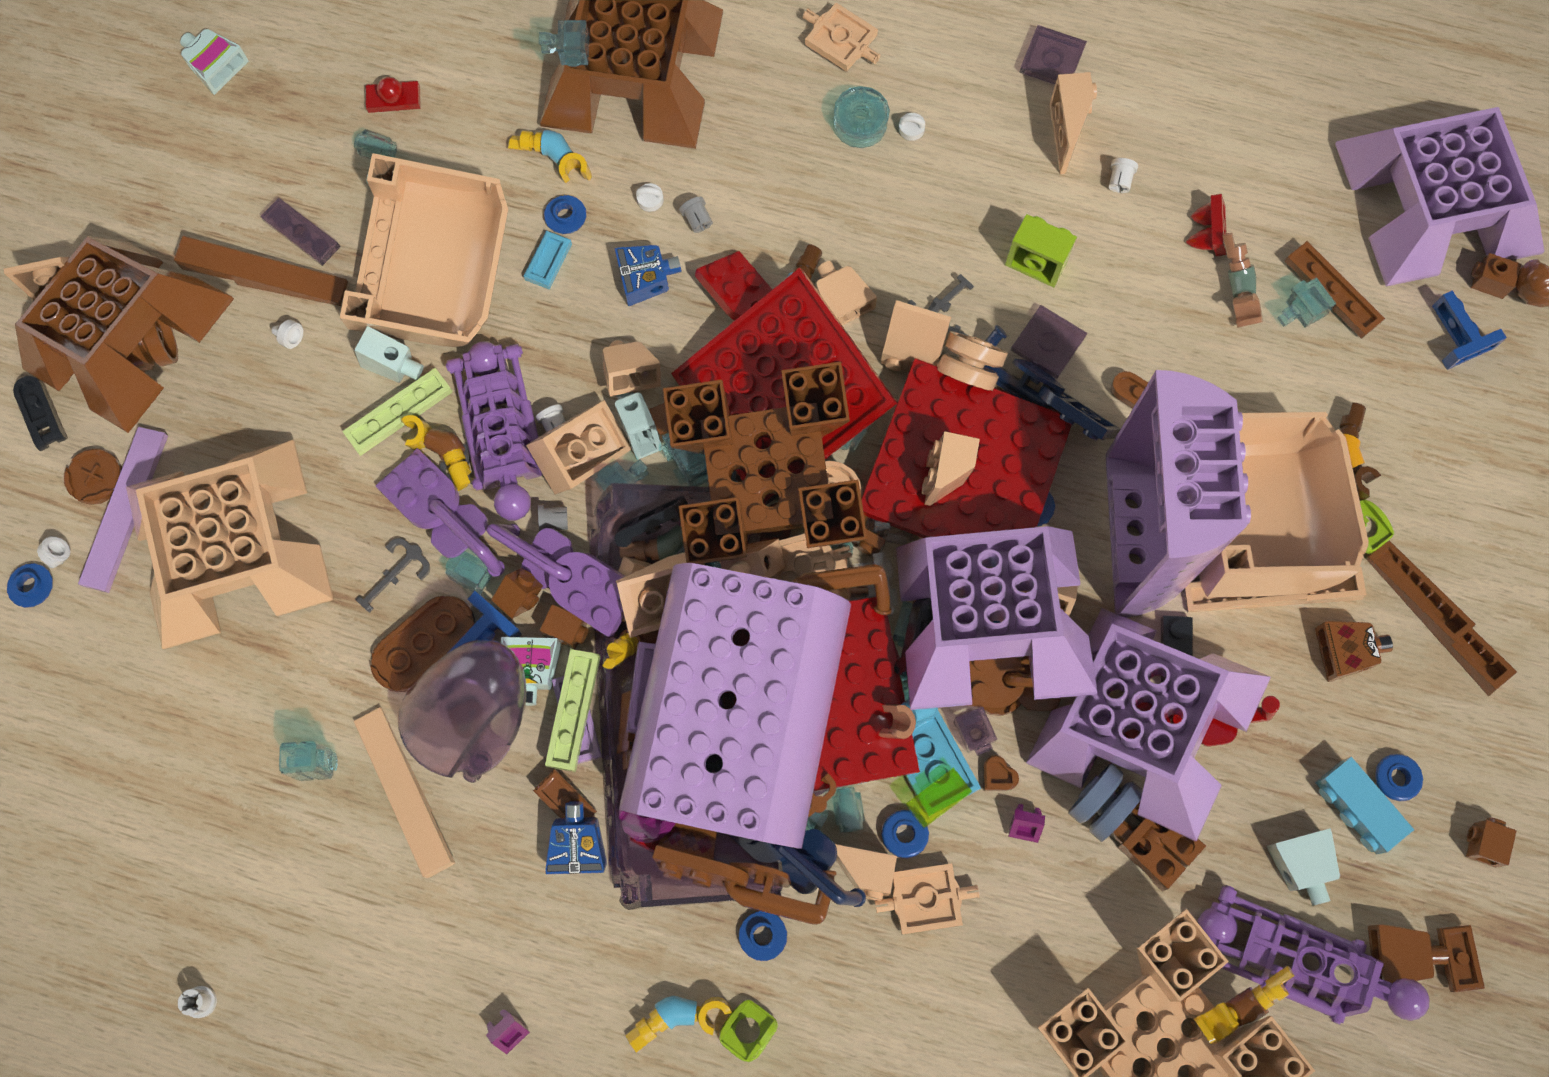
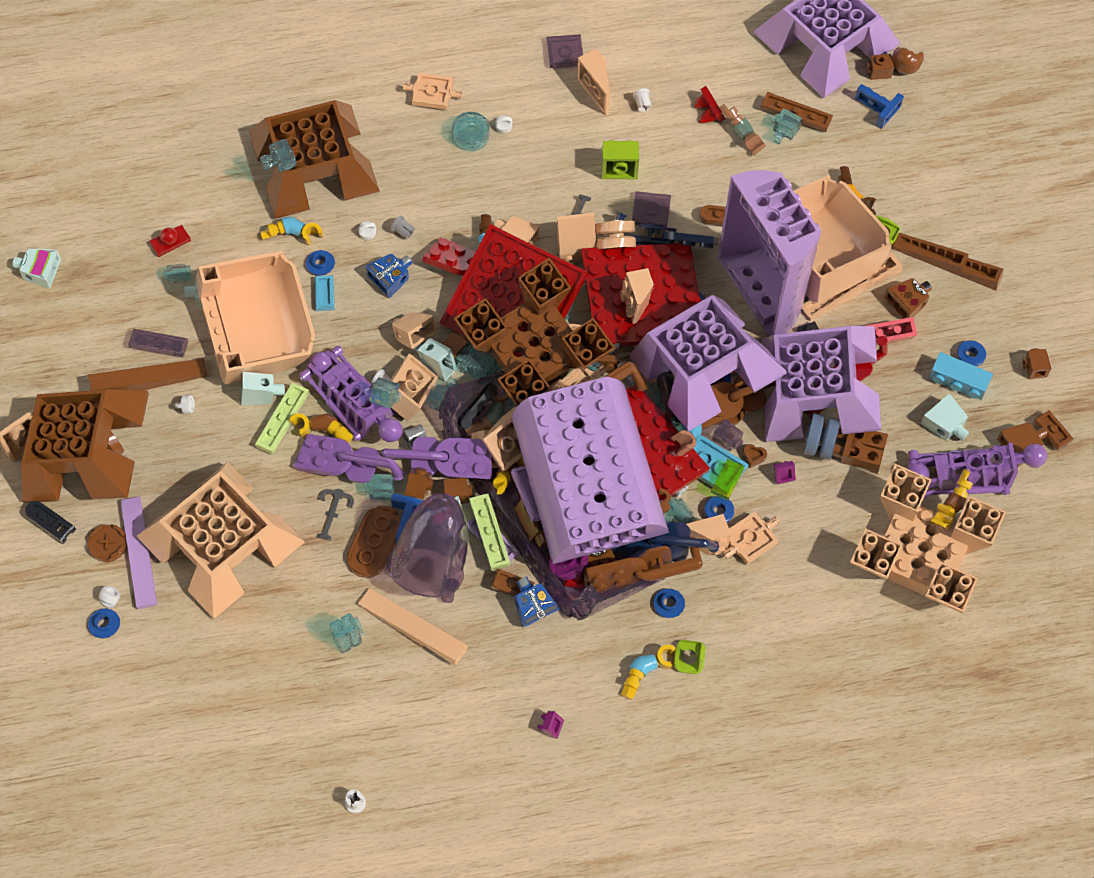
camera: 30 degrees left, 10 degrees down
(528, 447) = (385, 393): none -> clear light blue brick
(1297, 689) = (896, 330): none -> coral brick

